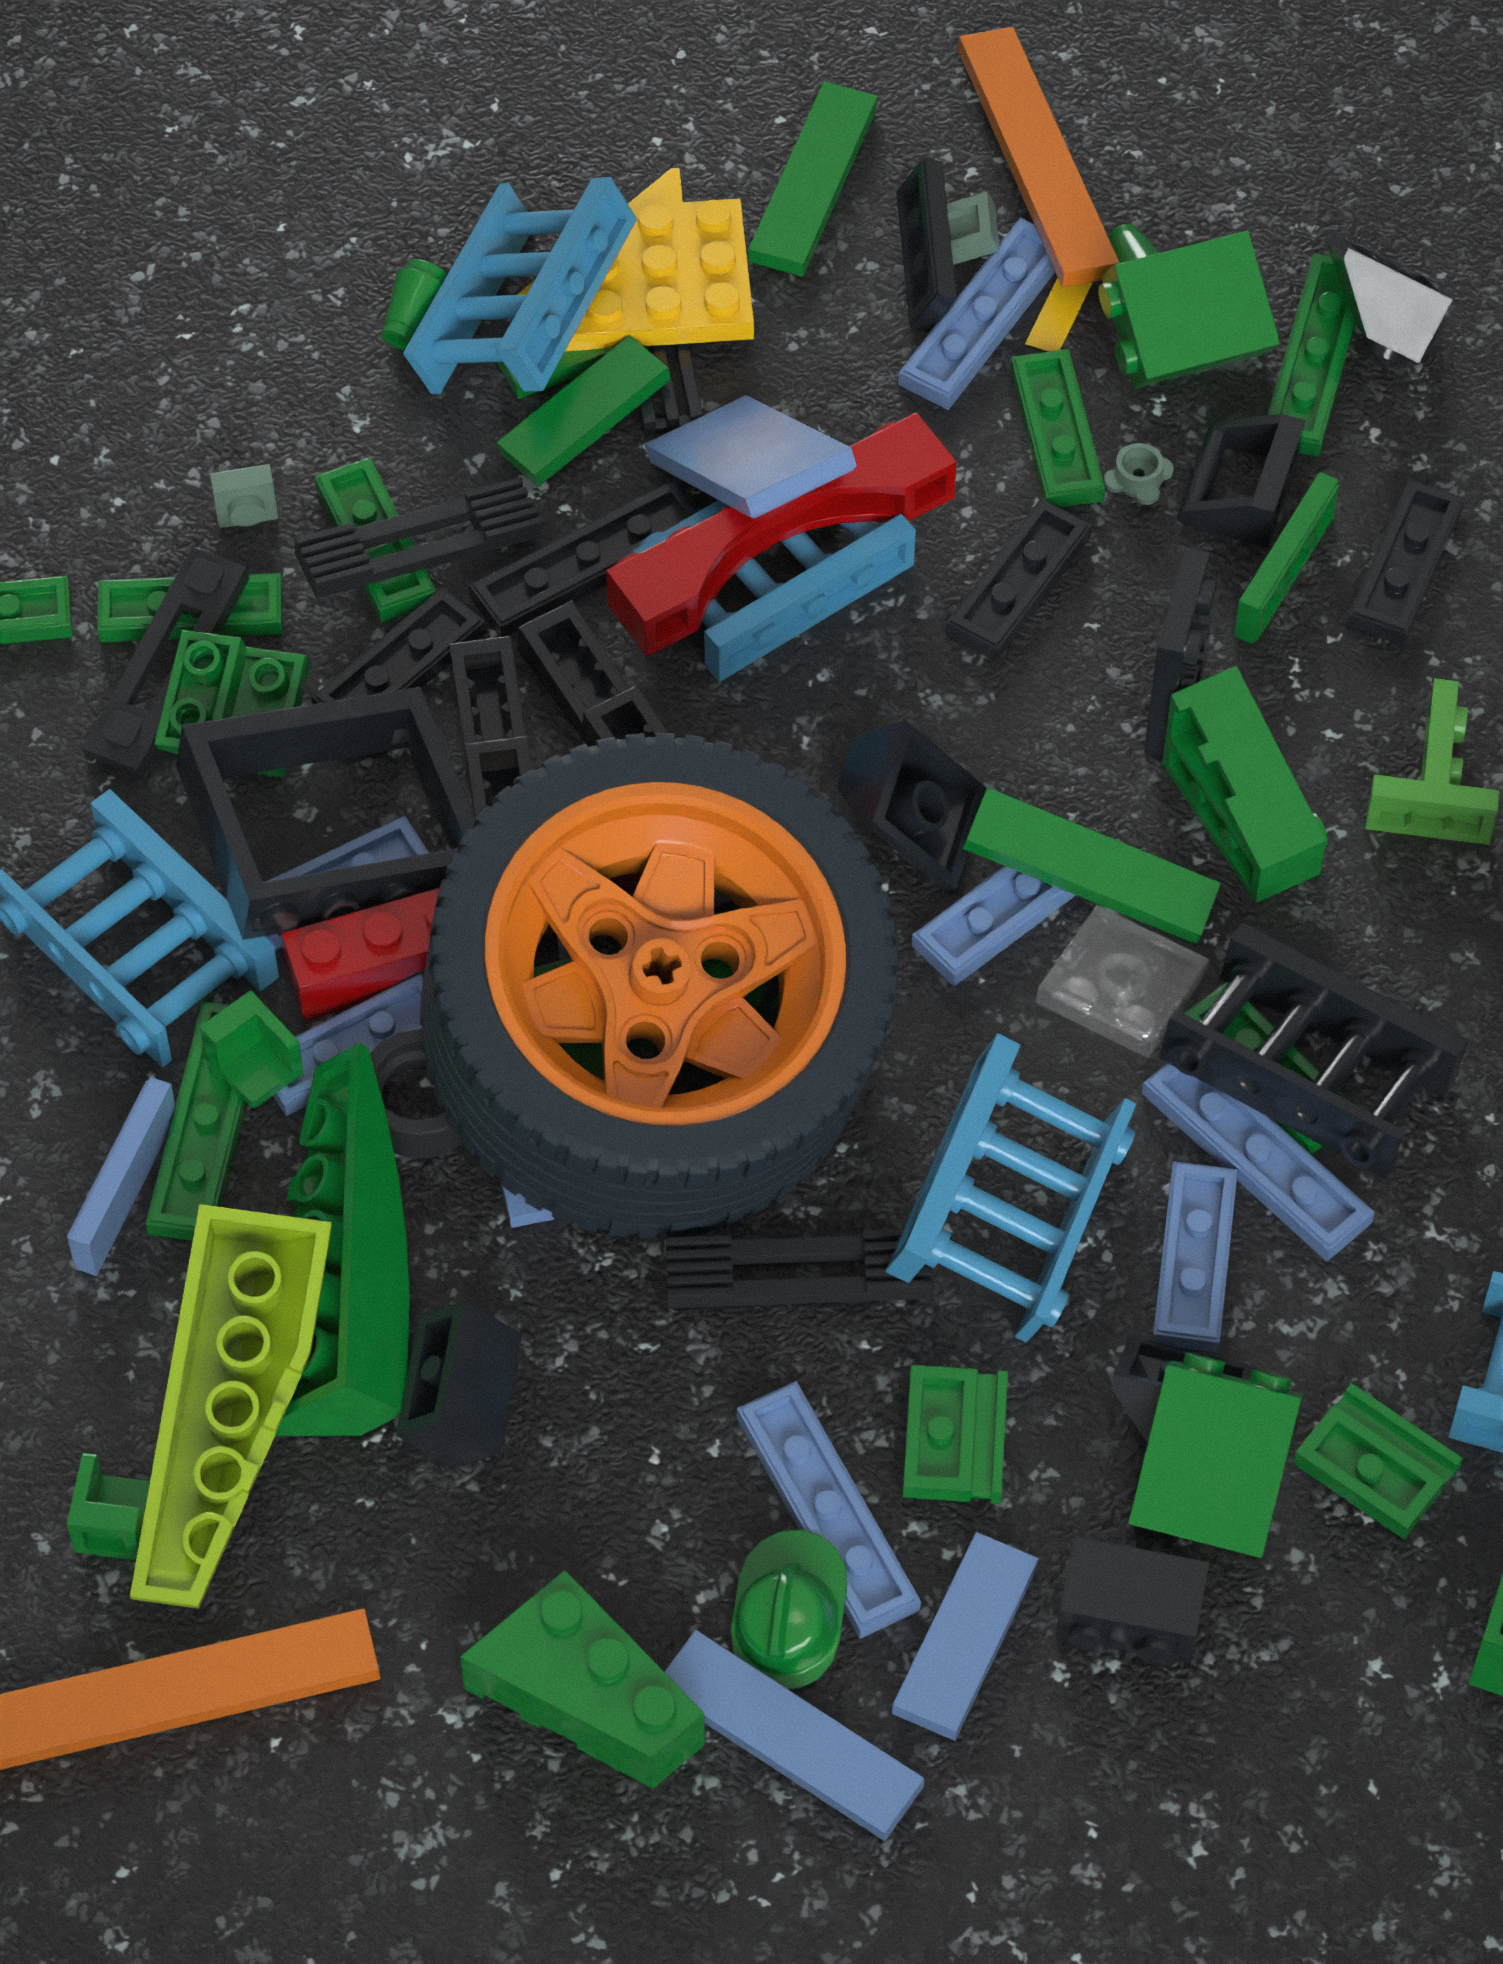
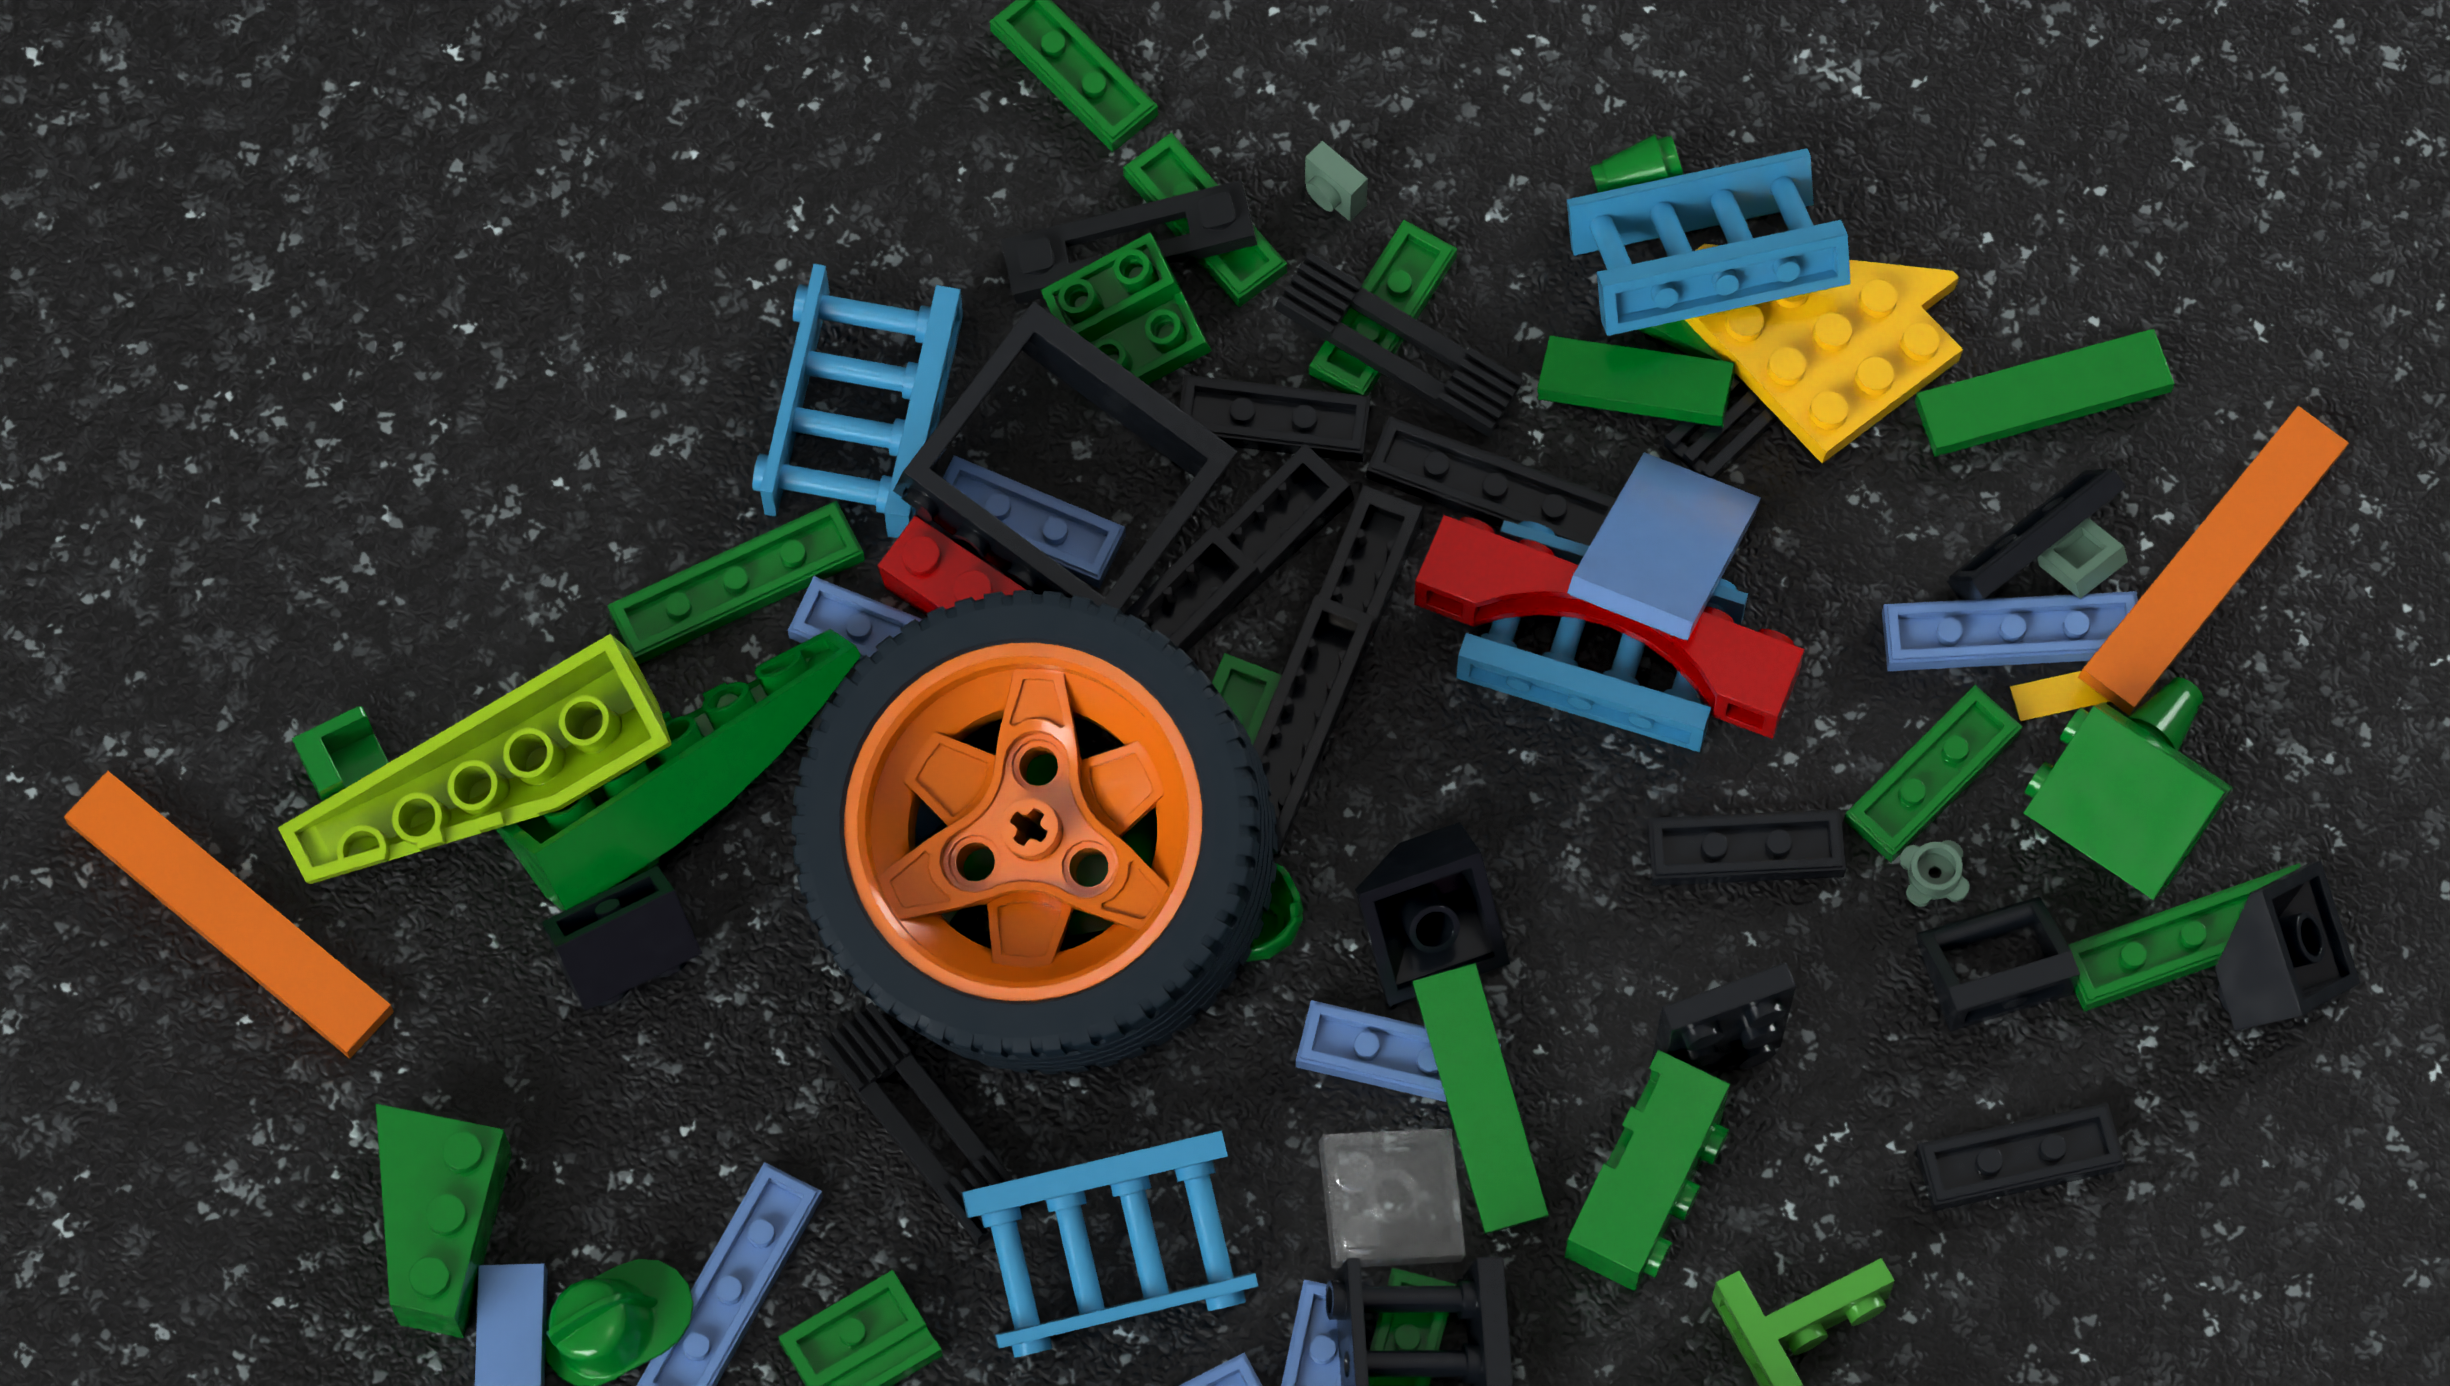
camera: 55 degrees right, 10 degrees up
(122, 1176) = (630, 557): medium blue tile -> none
(251, 1049) = (805, 570): green panel -> none
(1286, 558) = (1933, 1054): green tile -> none

